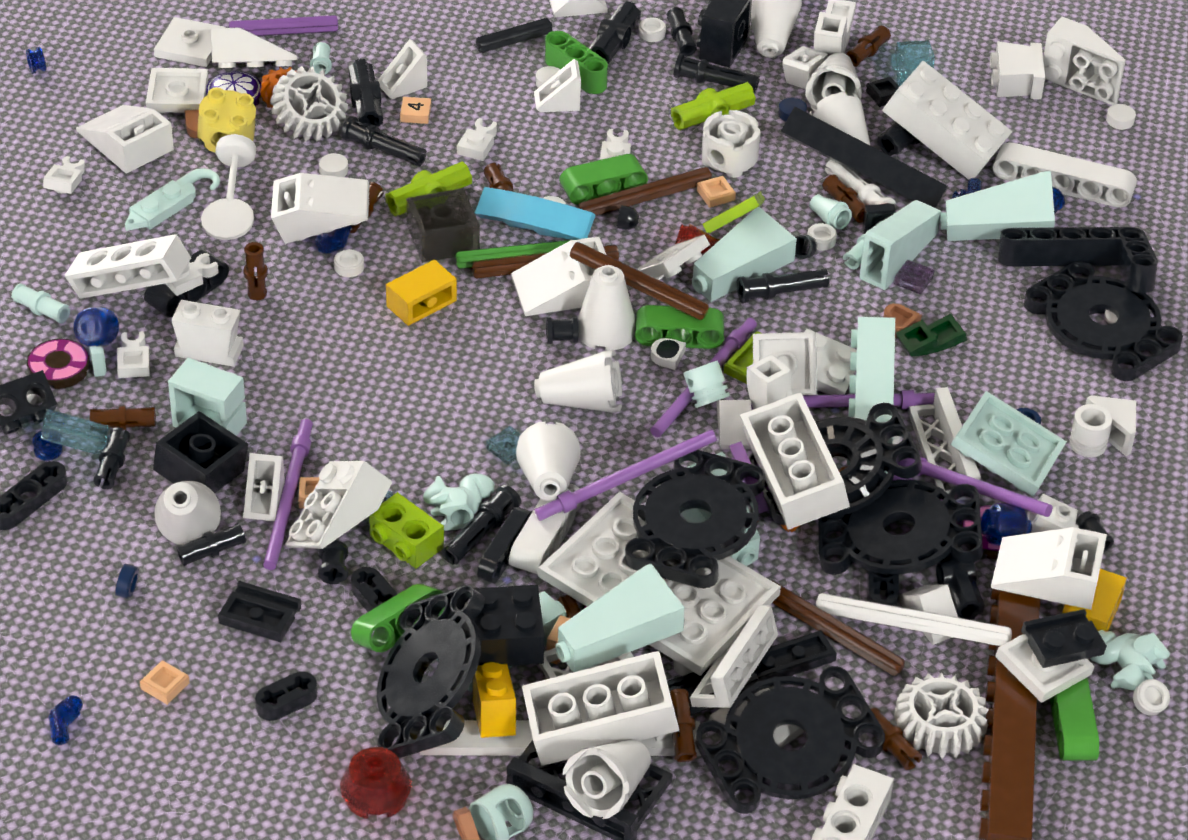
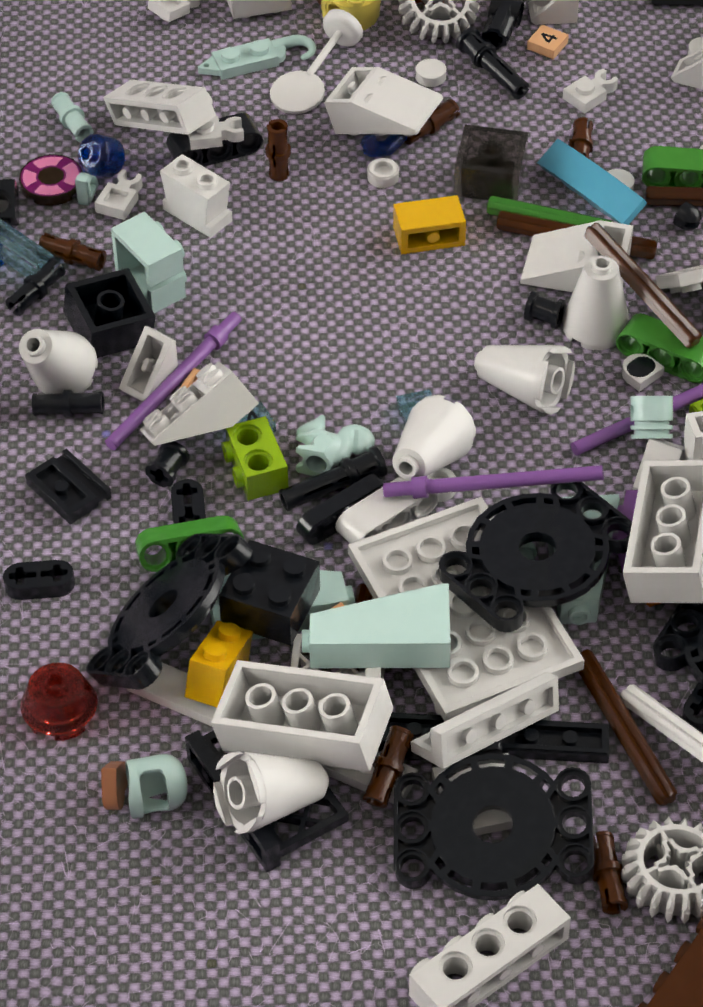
camera: 30 degrees right, 5 degrees up
(426, 183) = (506, 116): lime piece -> none

